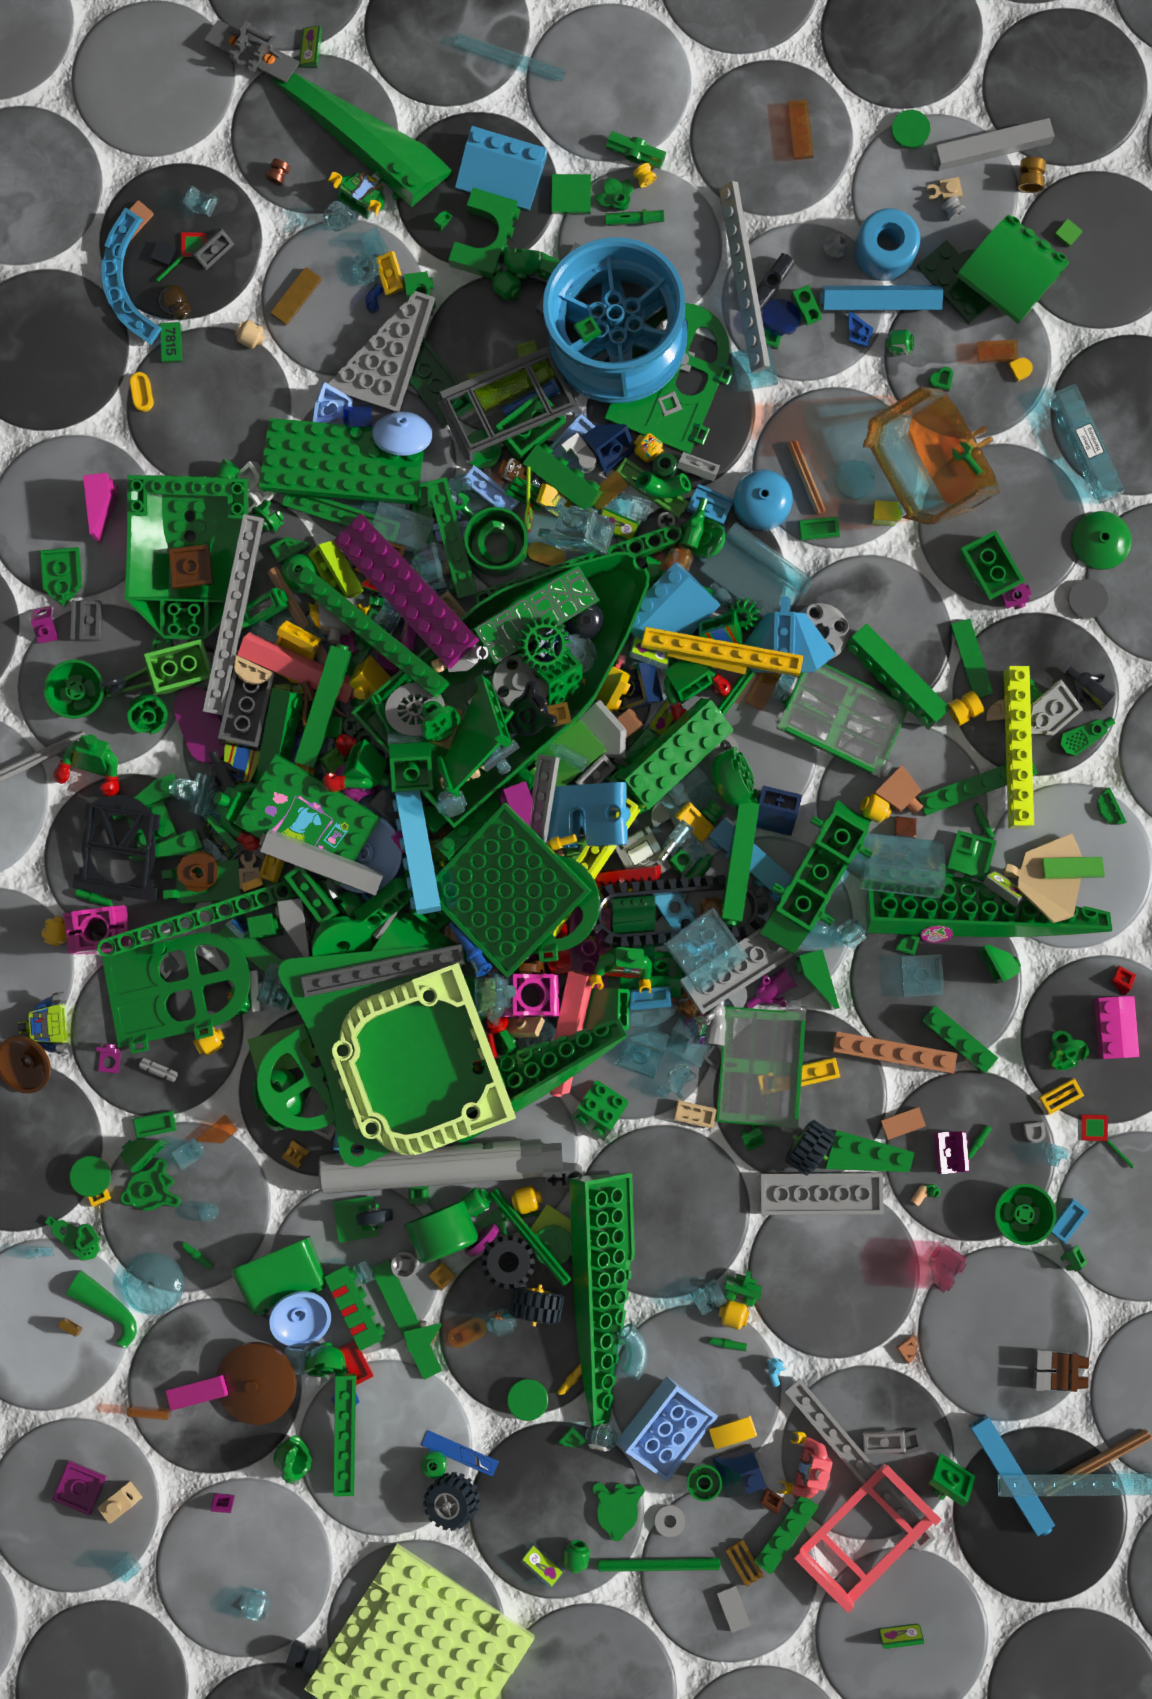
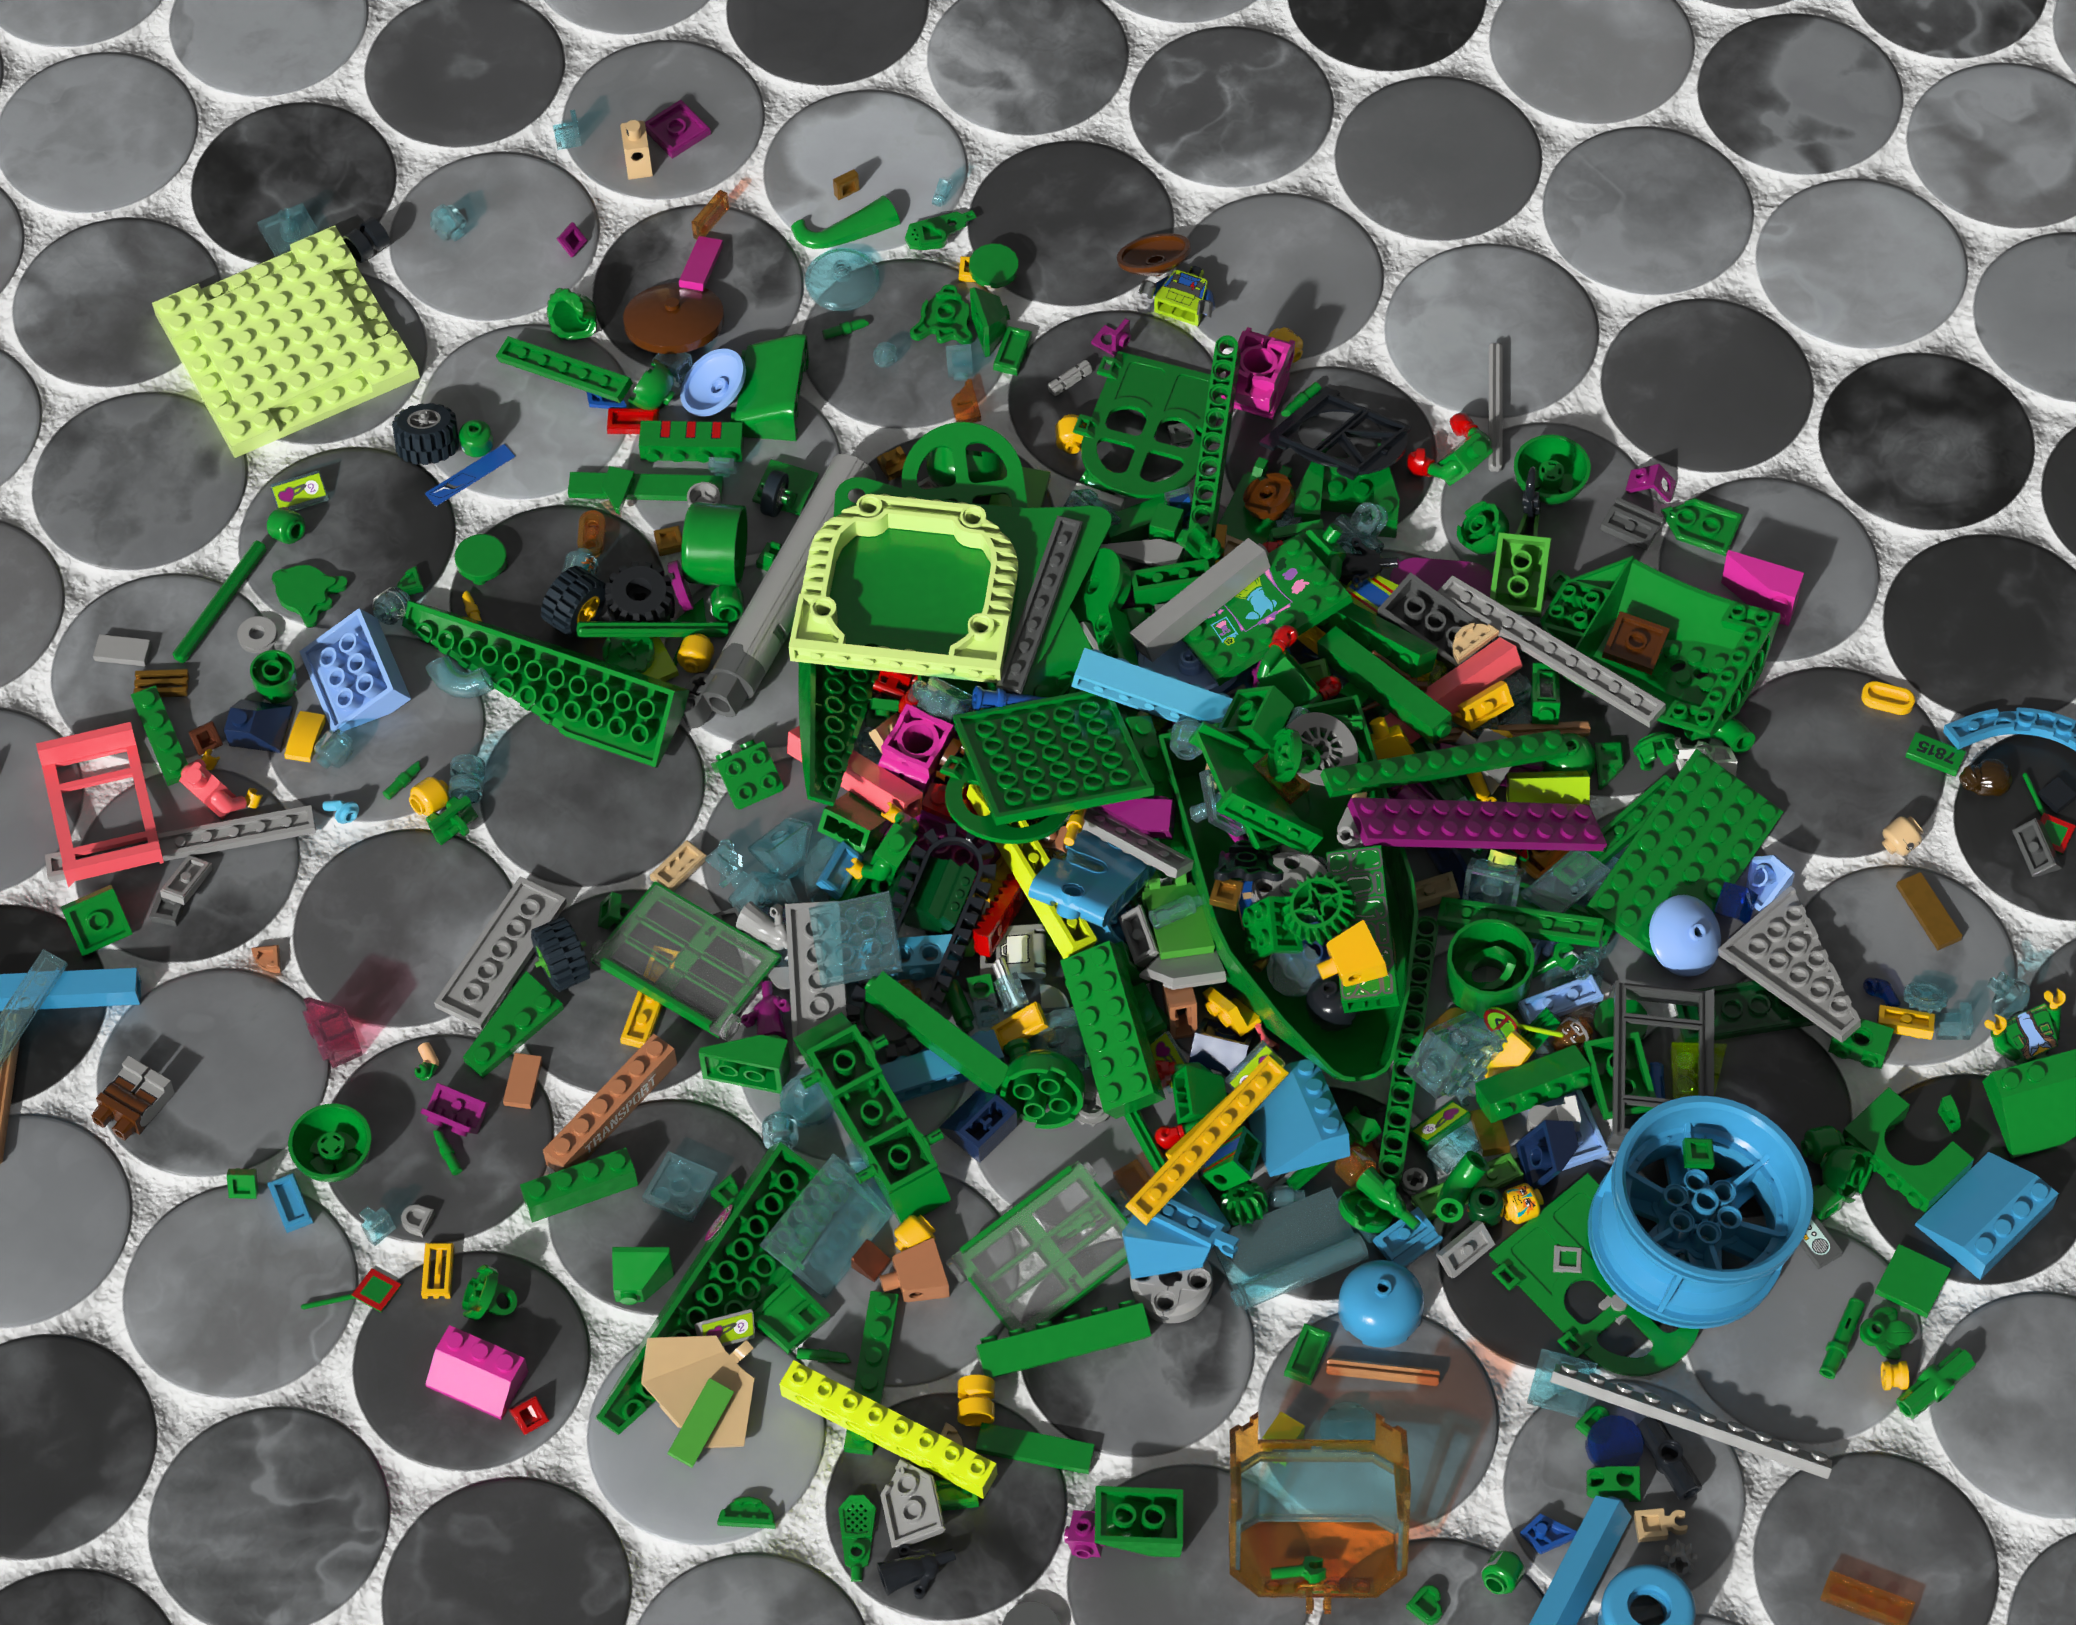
camera: 120 degrees right, 25 degrees down
(276, 886) = (1200, 544): none -> green hips
(570, 603) = (1353, 957): none -> yellow torso
(734, 1404) = (333, 749): none -> clear light blue head
(819, 271) = (1654, 1525): none -> tan plate

